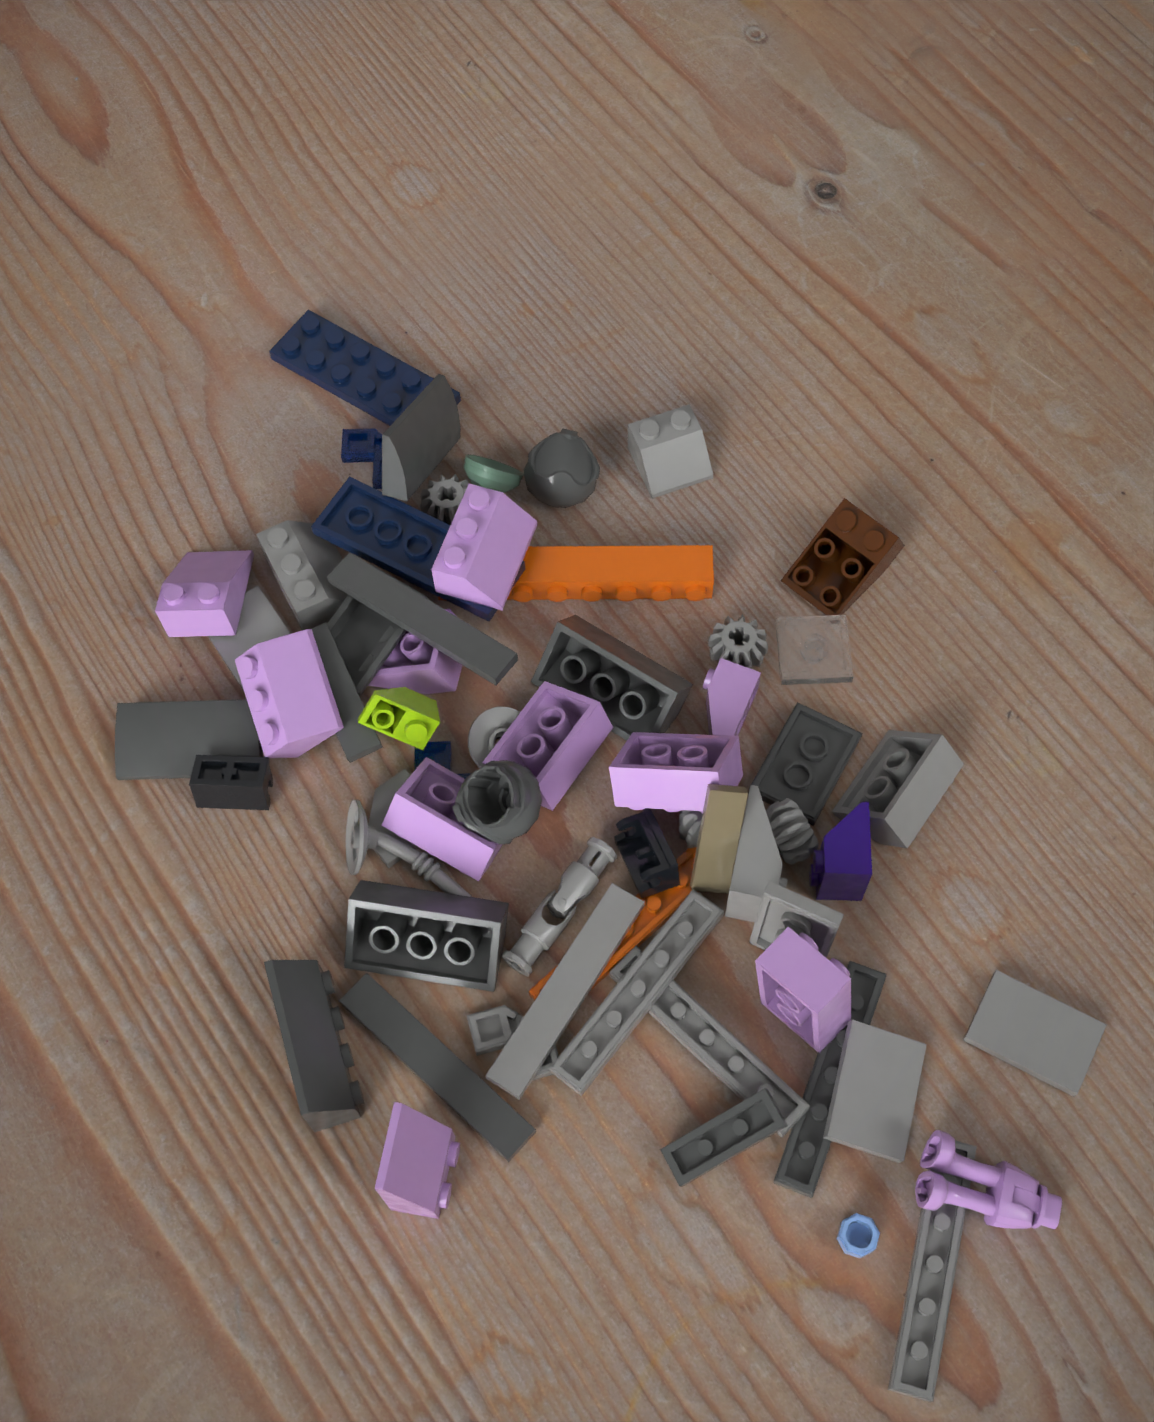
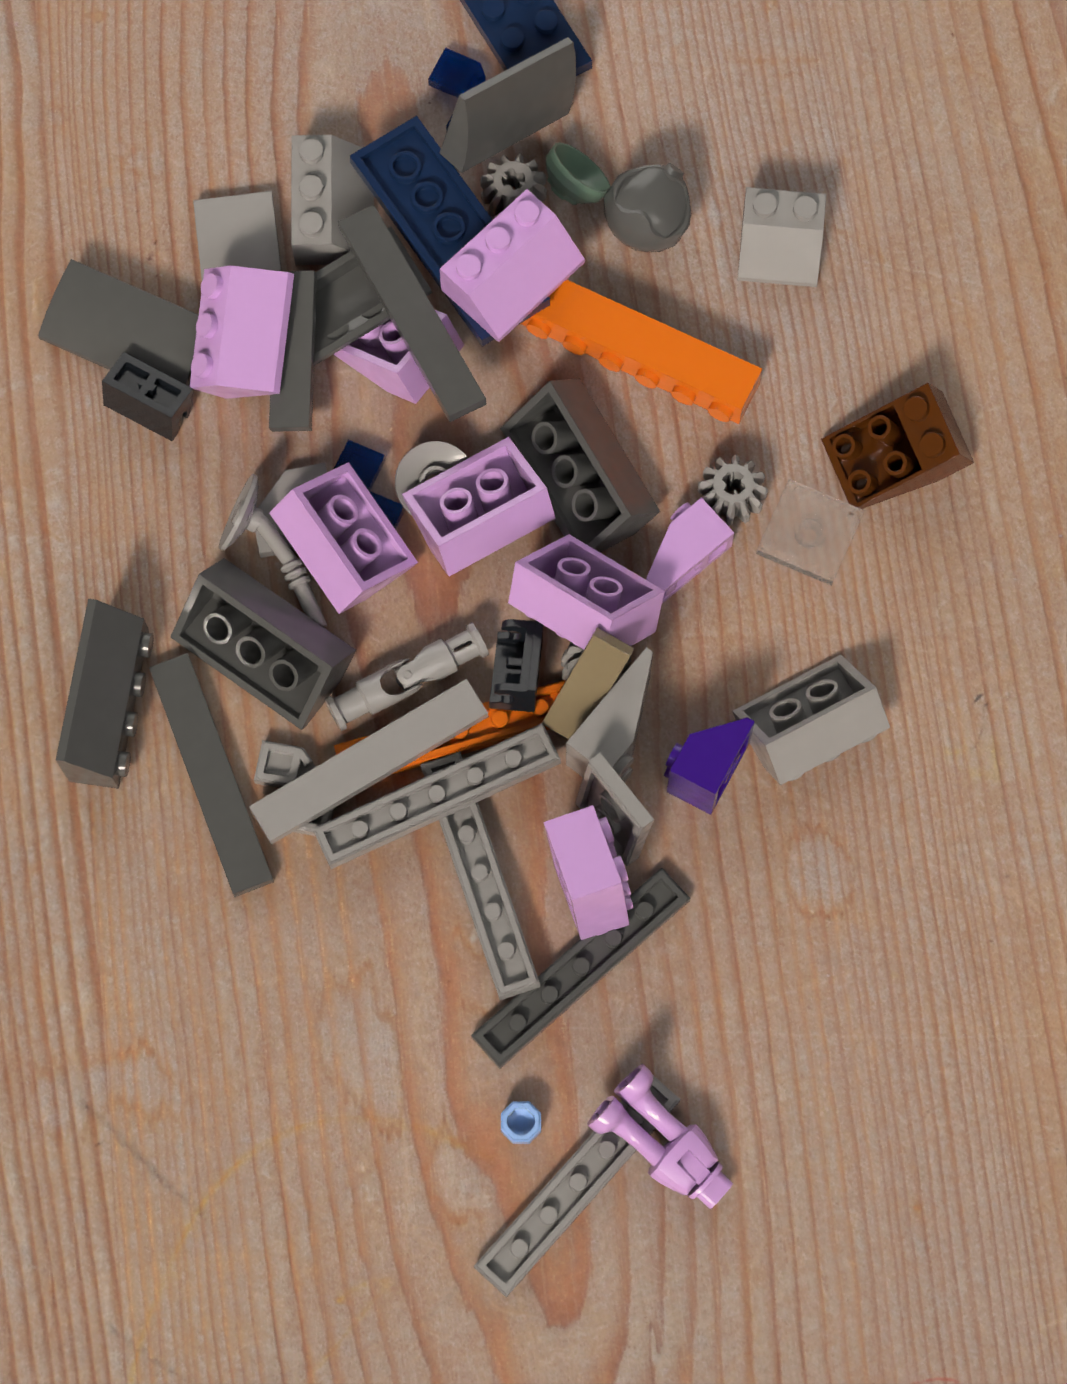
camera: 25 degrees right, 10 degrees up
(205, 594) = (213, 175): lavender slope -> none
(402, 715) = (344, 407): lime slope -> none
(416, 1163) = (142, 855): lavender slope -> none
(499, 801) = (390, 544): dark grey helmet -> none
(723, 1137) = (442, 972): dark grey plate -> none
(791, 831) = (670, 710): light grey gear -> none
(806, 761) = (733, 648): dark grey tile -> none
(875, 1091) = (613, 1001): light grey tile -> none
(1035, 1033) = (803, 1024): light grey tile -> none

